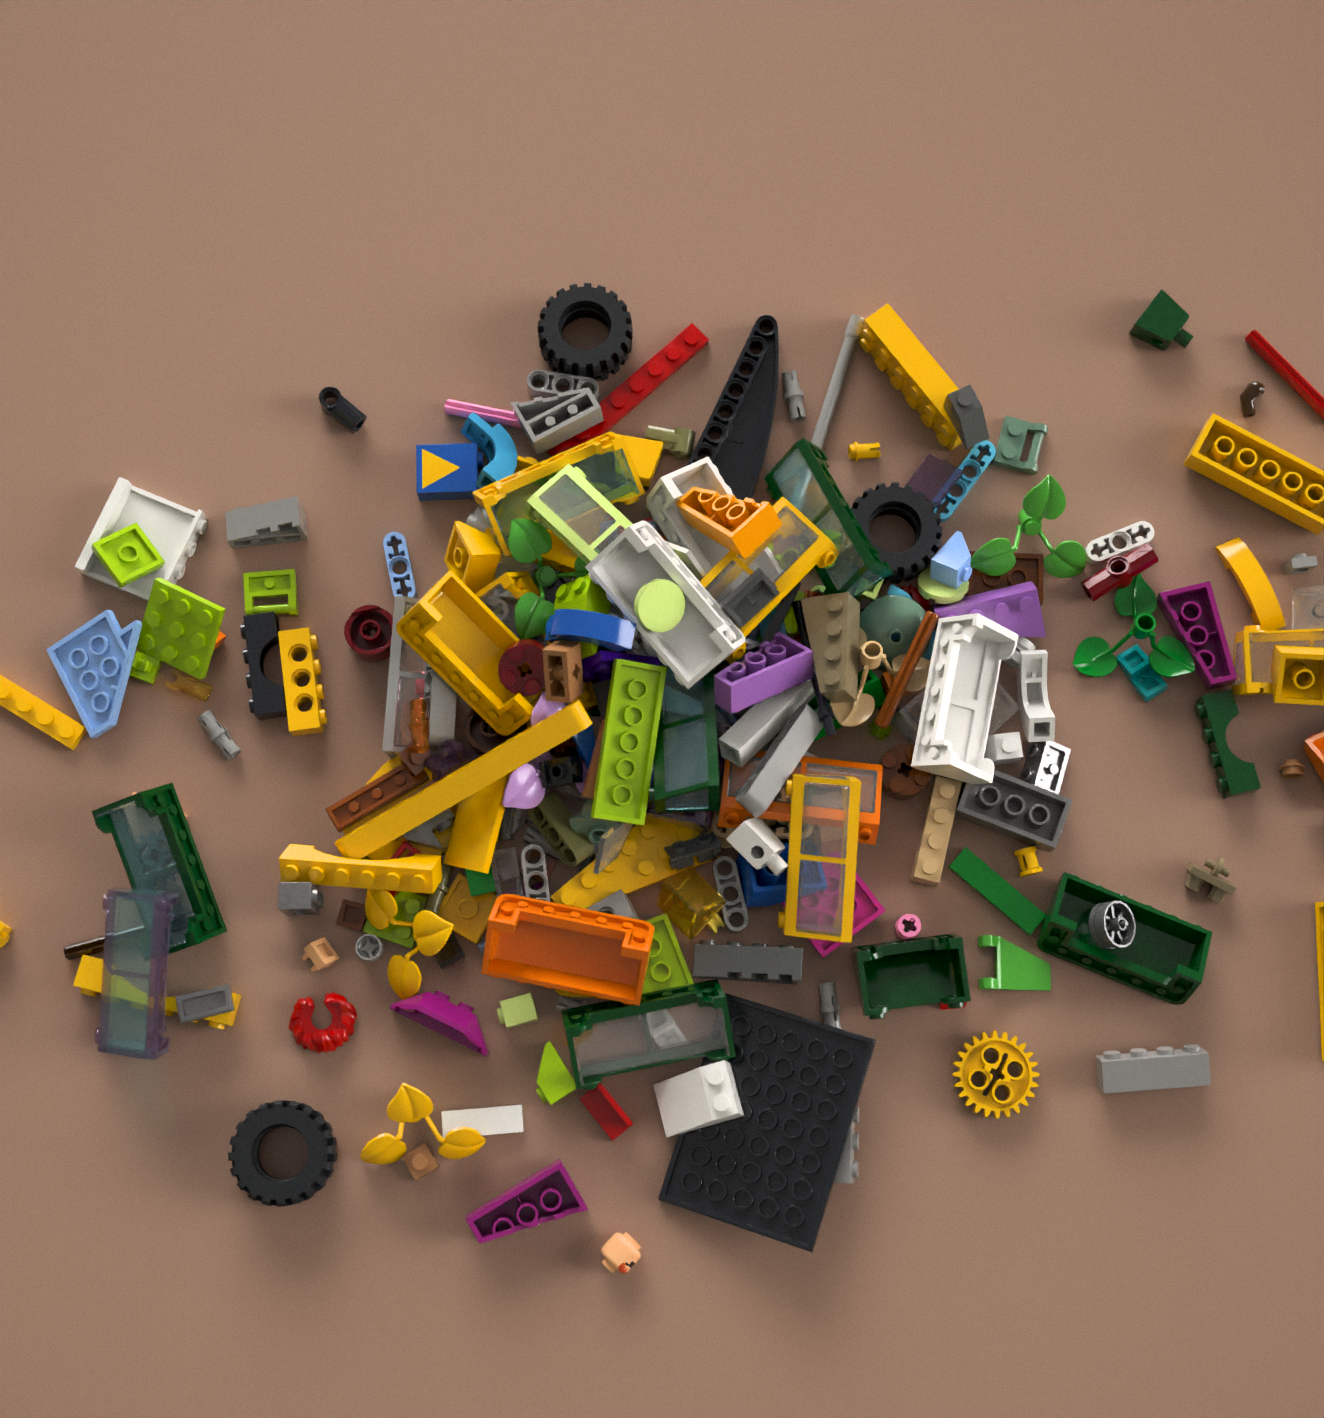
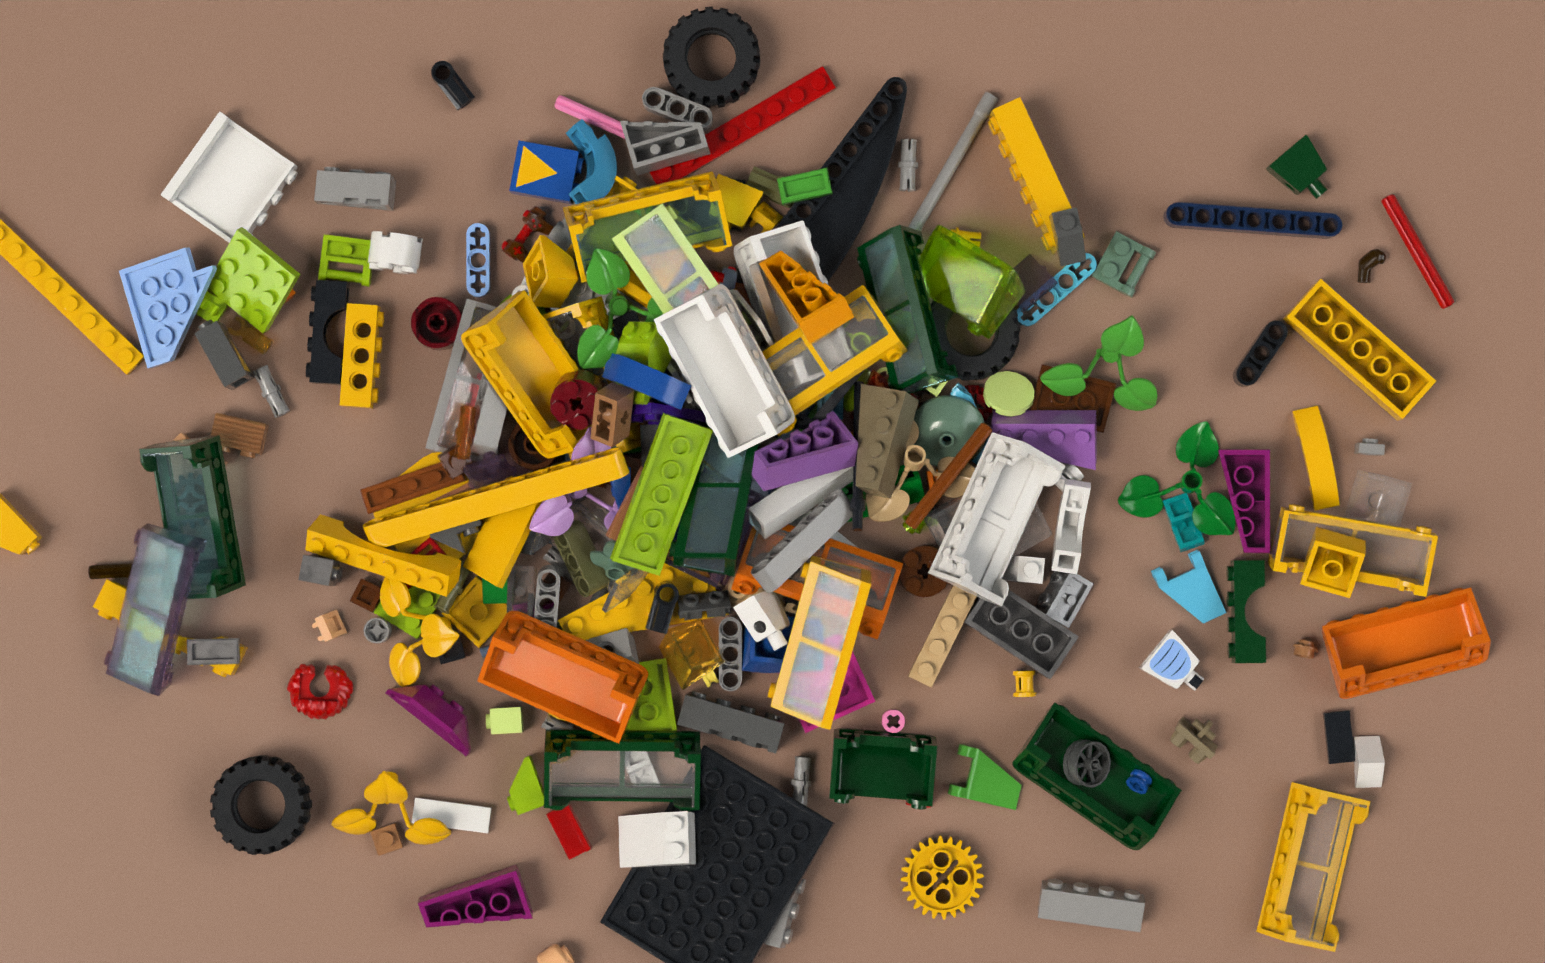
camera: 15 degrees right, 10 degrees up
(127, 555) = (214, 193): lime plate -> none
(164, 706) = (223, 354): none -> dark grey brick
(196, 782) = (240, 434): none -> medium nougat brick
(316, 573) = (394, 252): none -> white brick
(433, 548) = (534, 221): none -> reddish brown piece
(561, 771) = (591, 506): black brick -> none
(652, 863) = (661, 610): none -> black piece
(659, 605) = (717, 372): yellowish green tile -> none
(665, 467) = (766, 217): none -> yellow tile
(701, 430) = (804, 186): none -> bright green tile
(749, 598) = (807, 381): dark grey hinge -> none
(883, 478) = (969, 281): none -> clear neon green windscreen
(952, 562) = (1022, 374): light blue slope -> none
(997, 891) = (987, 704): green tile -> none
(1099, 543) = (1213, 377): white beam -> none
(1127, 565) = (1172, 423): dark red piece -> none
(1140, 372) = (1264, 216): none -> dark blue beam
(1167, 734) = (1192, 589): none -> medium azure flag
(1167, 933) = (1139, 781): none -> blue bush
(1168, 809) = (1173, 663): none -> torso
(1179, 490) = (1269, 345): none -> black beam

